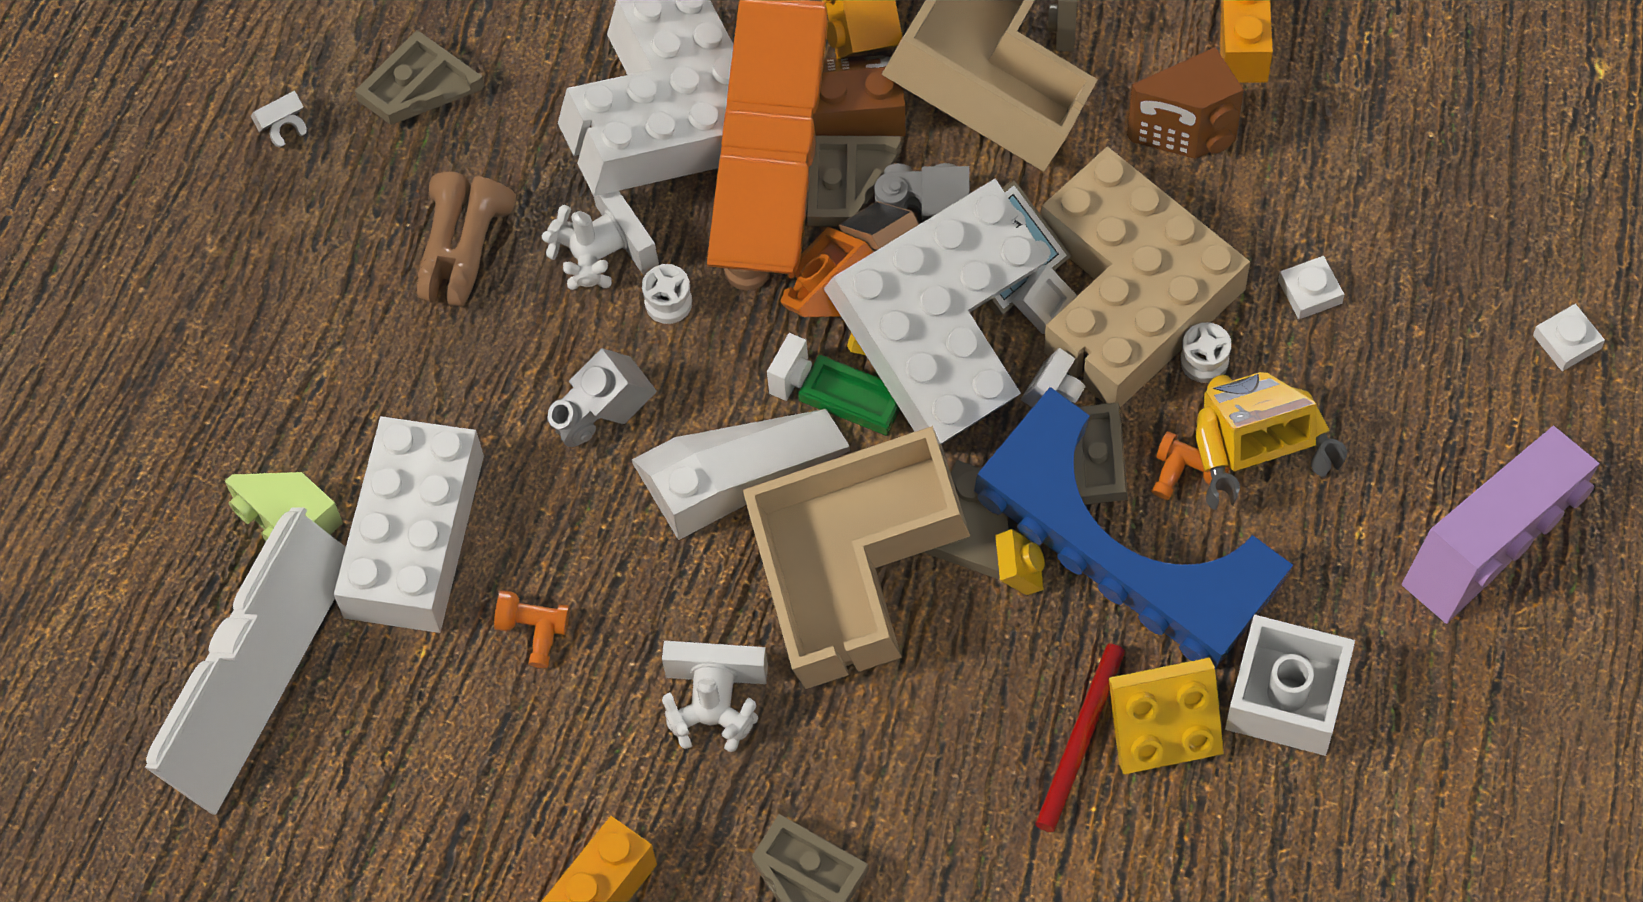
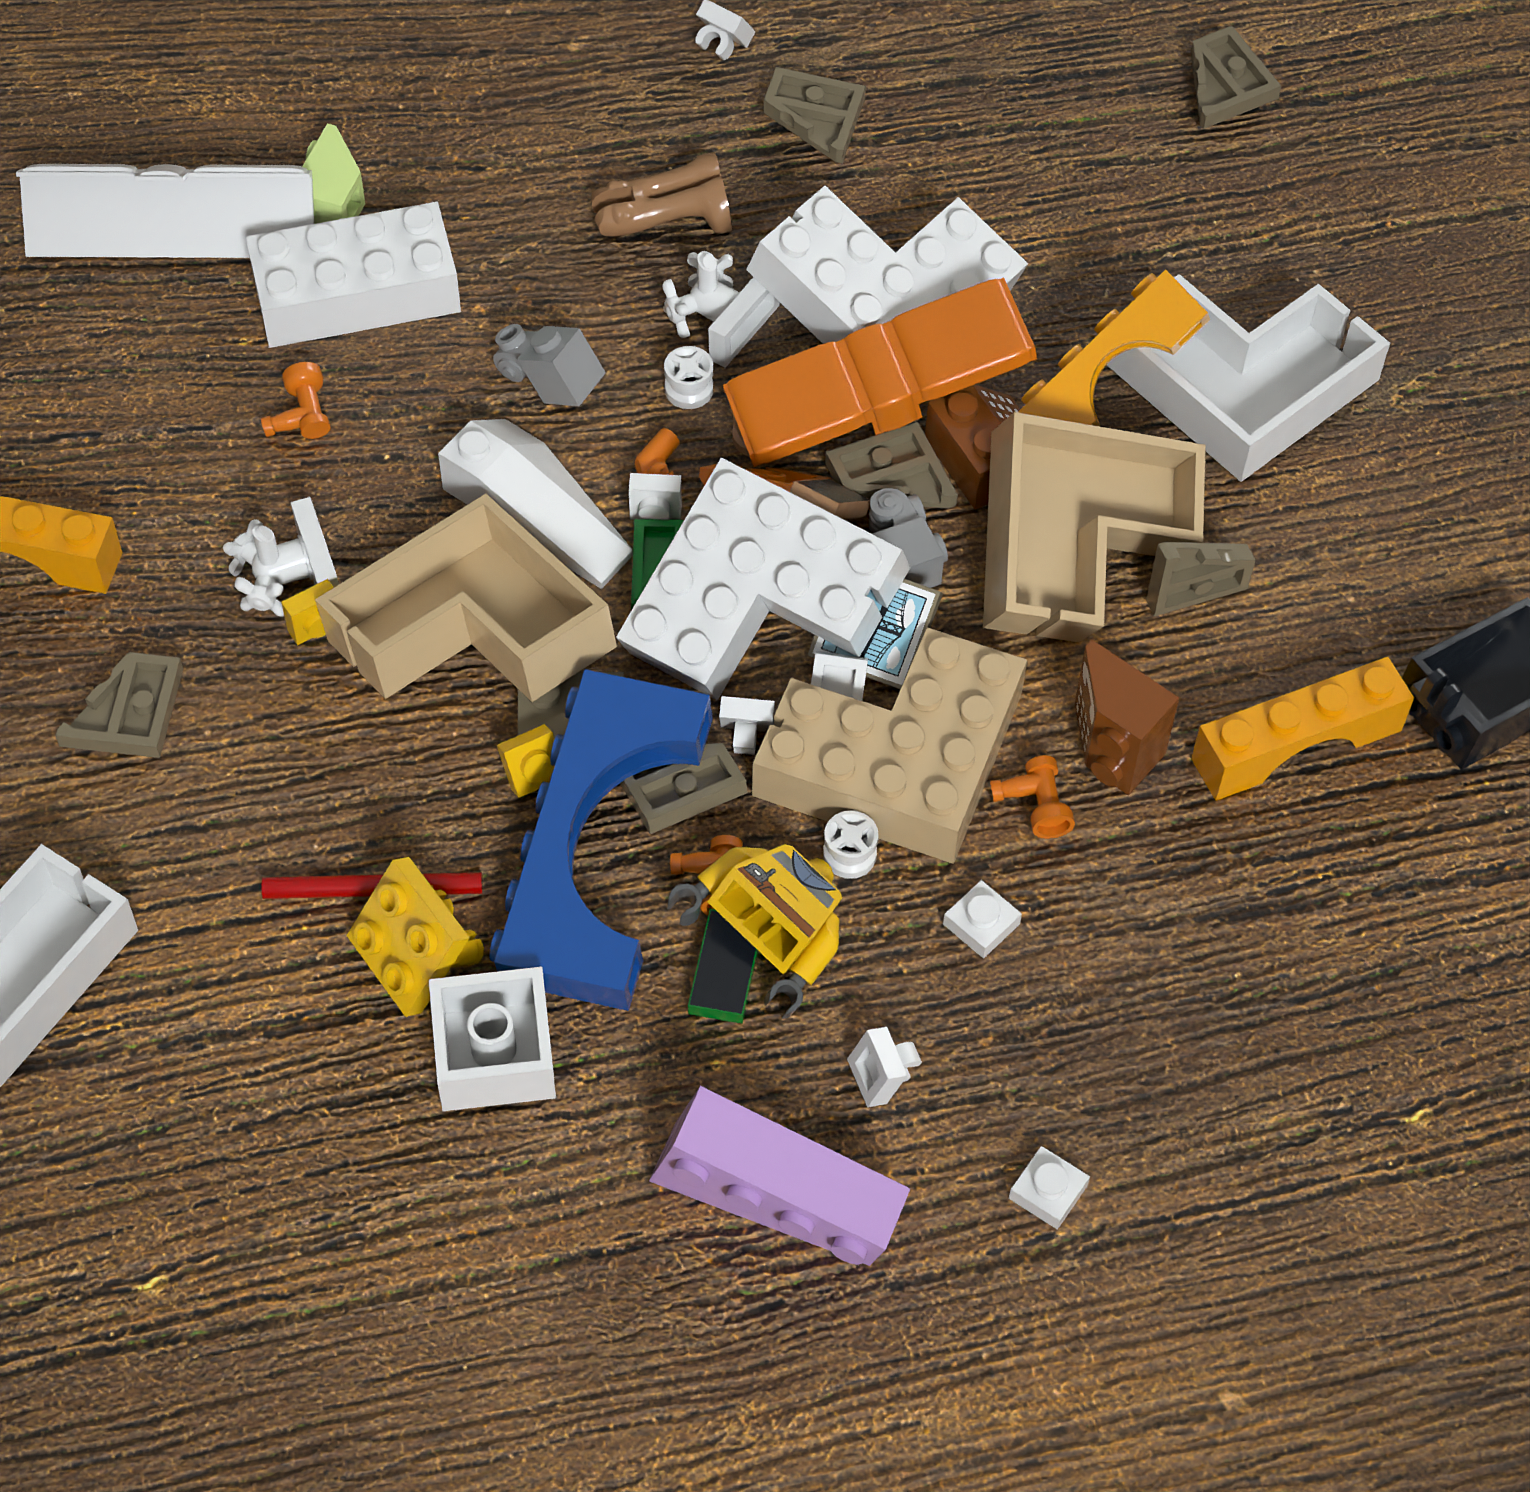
camera: 60 degrees right, 5 degrees down
(740, 359) = (656, 452): none -> orange arm
(782, 686) = (303, 615): none -> yellow plate
(1204, 193) = (1051, 817): none -> orange piece
(1283, 494) = (722, 972): none -> black tile
(1424, 409) = (881, 1065): none -> white tile

